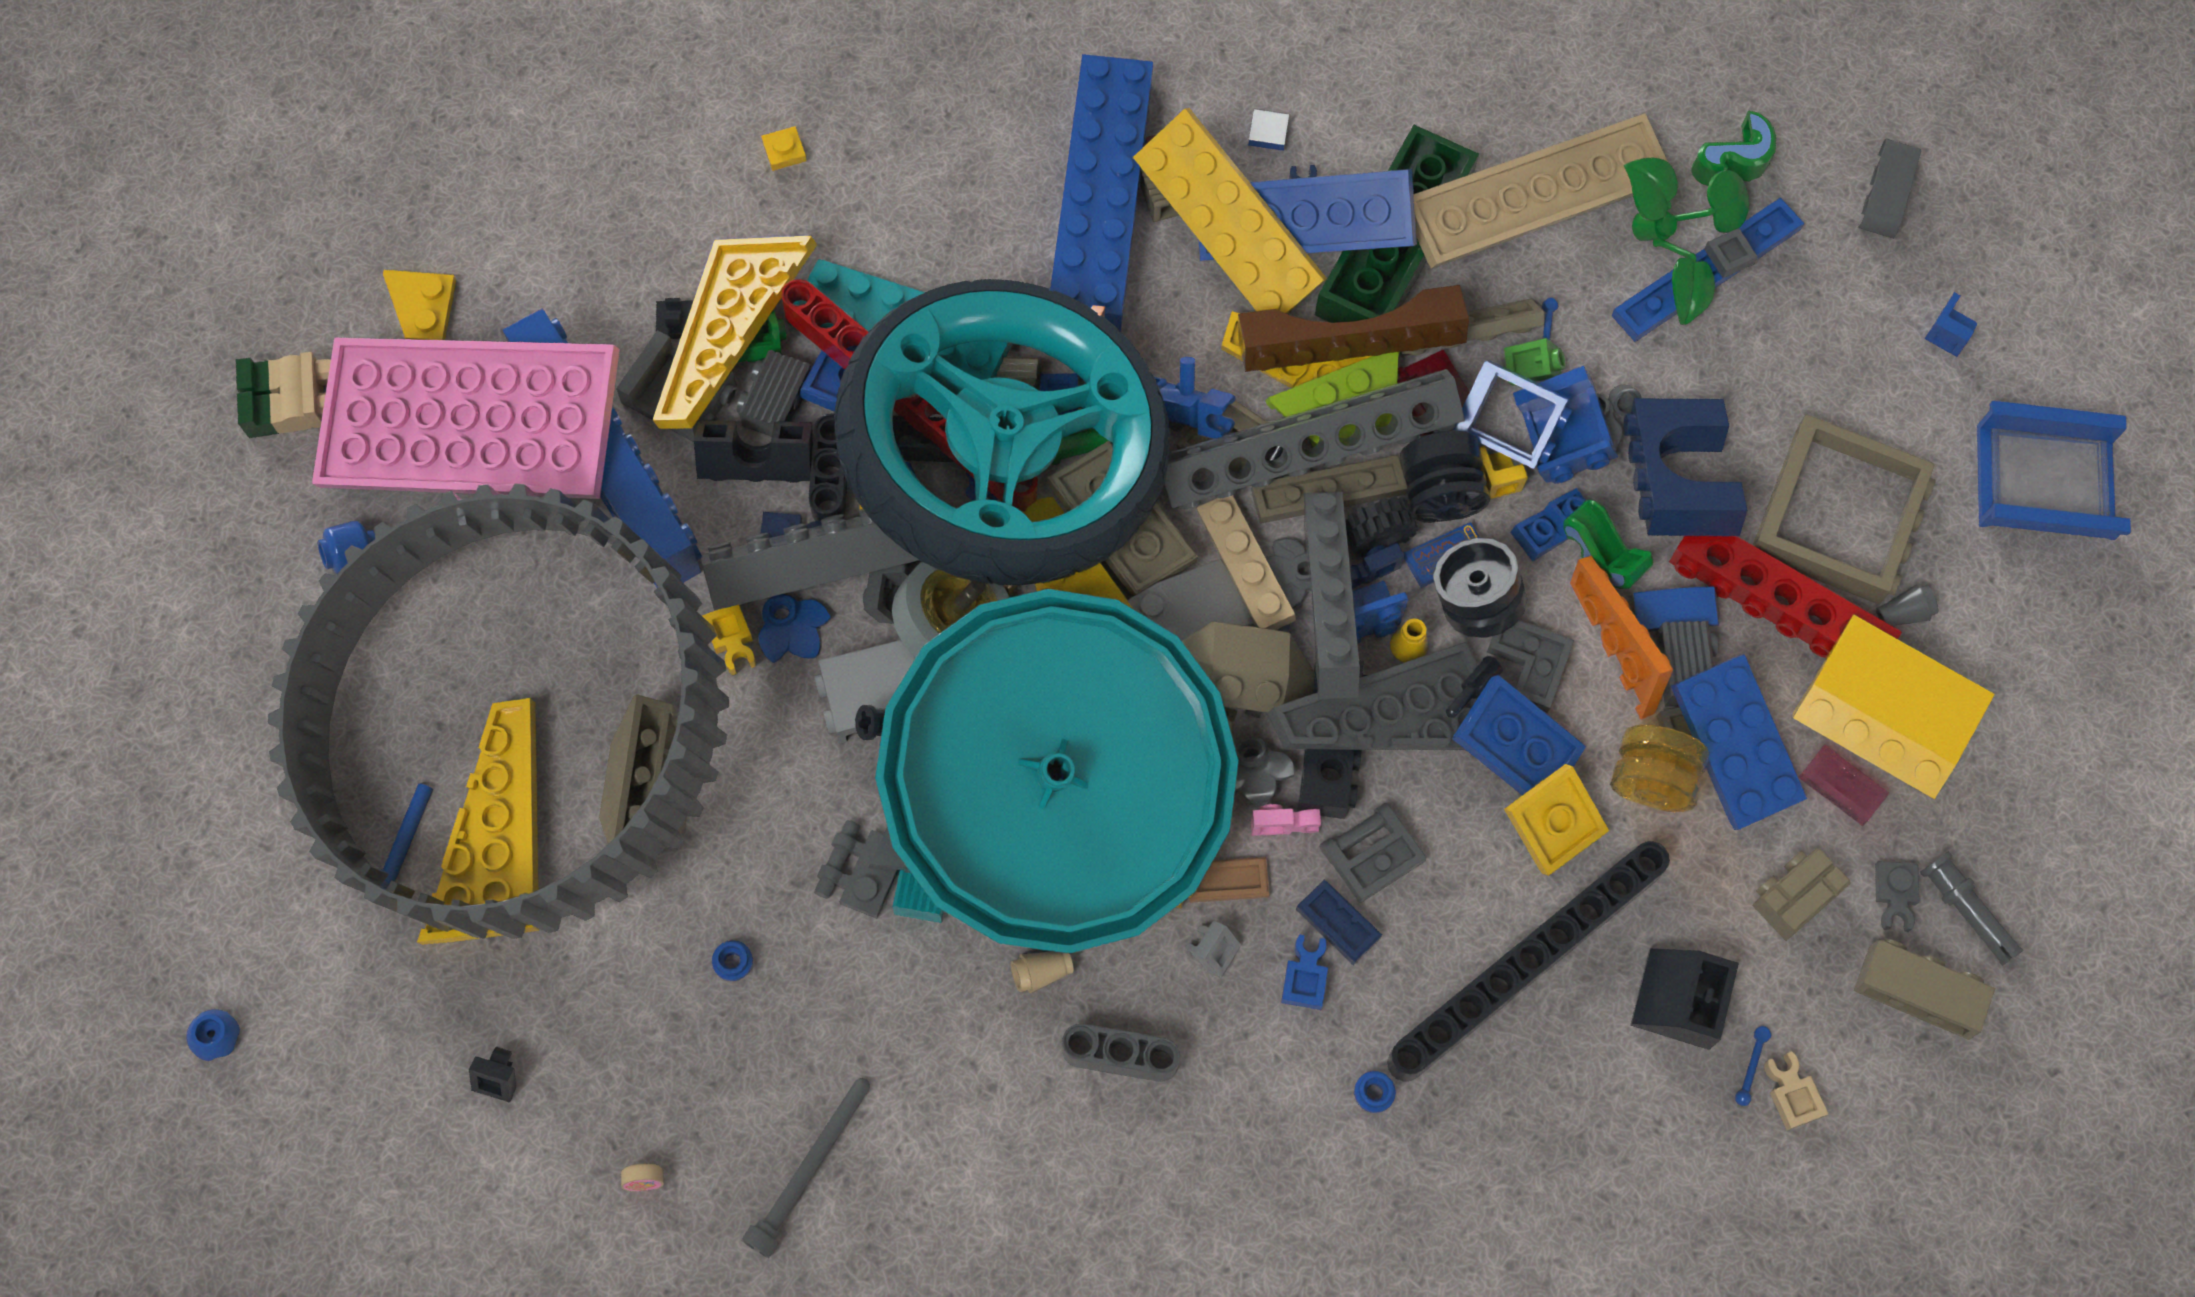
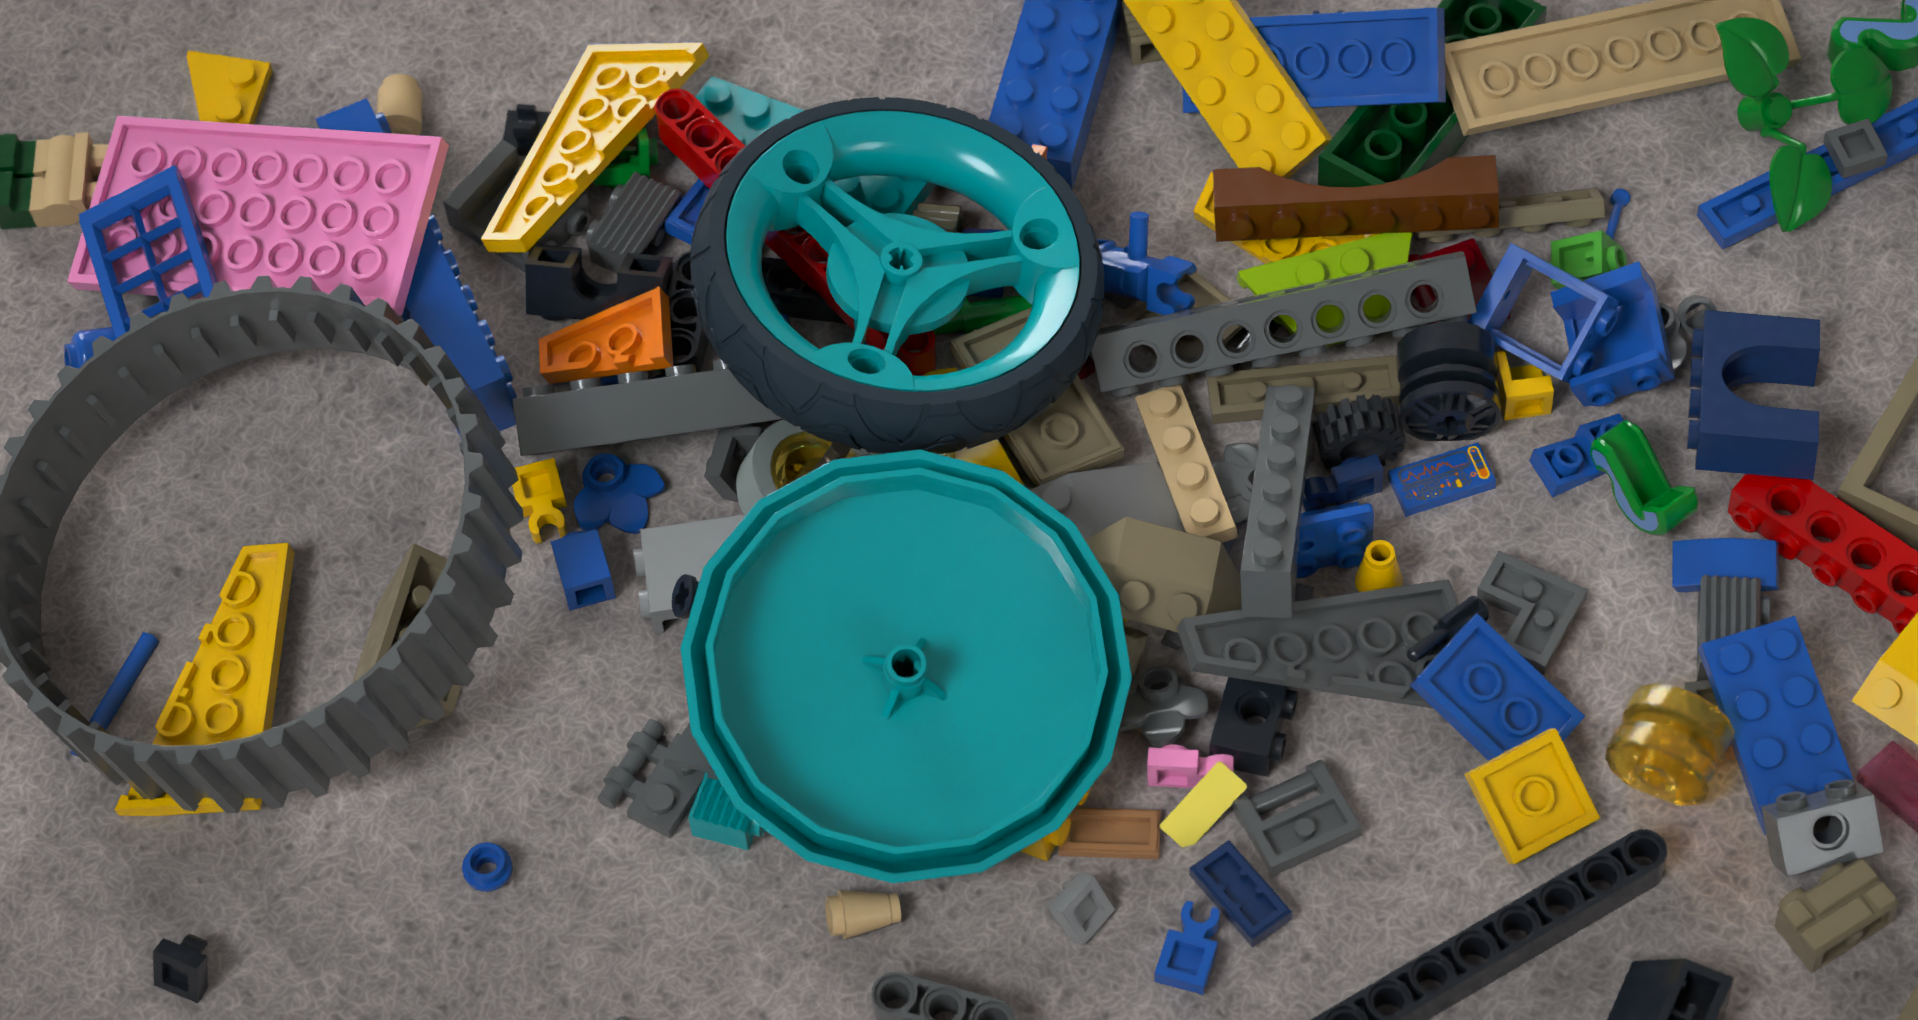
camera: 15 degrees right, 10 degrees down
(356, 414) = (131, 203): none -> blue piece
(568, 305) = (401, 104): none -> tan brick
(772, 499) = (612, 342): none -> orange wing
(774, 695) = (583, 569): none -> blue brick
(1300, 851) = (1203, 805): none -> light yellow sticker
(1480, 587) = (1473, 514): black wheel -> none
(1622, 634) = (1648, 587): orange wing -> none
(1783, 825) = (1849, 835): none -> brick

